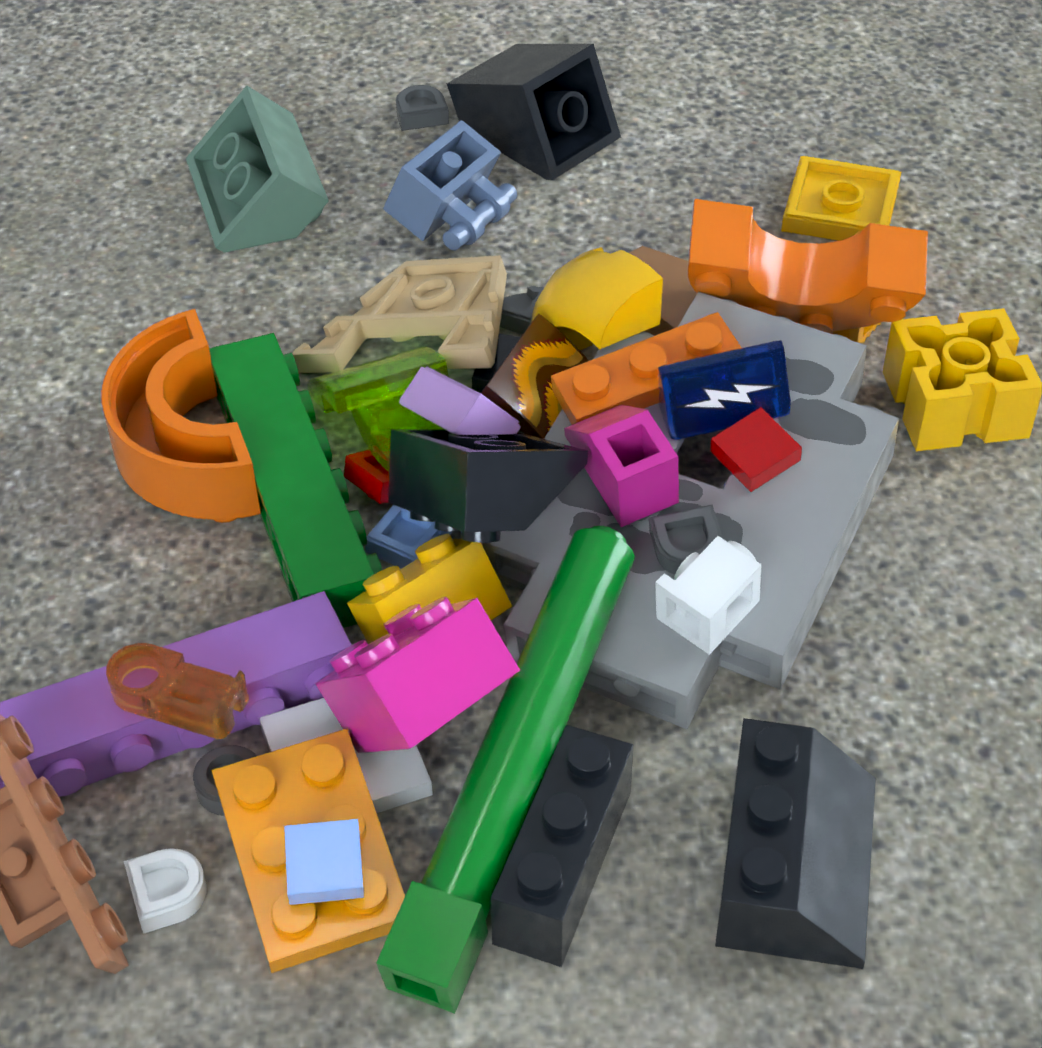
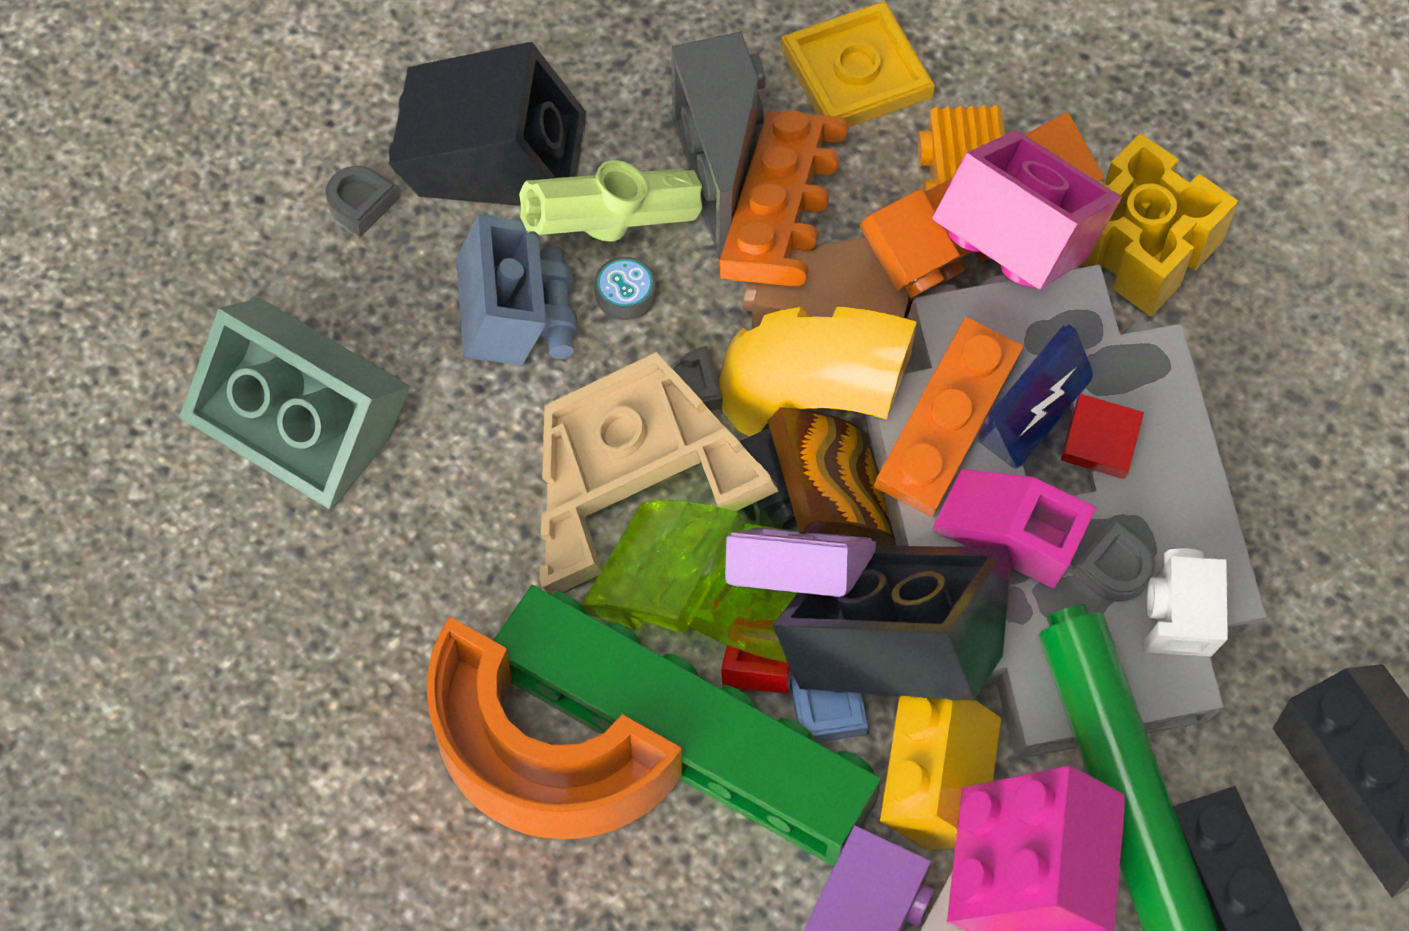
camera: 40 degrees left, 15 degrees up
(536, 235) = (625, 288): none -> tile
(567, 167) = (610, 201): none -> yellowish green piece
(668, 224) = (776, 195): none -> orange hinge
(682, 161) = (717, 120): none -> dark grey slope
(823, 259) = (1025, 209): none -> brick

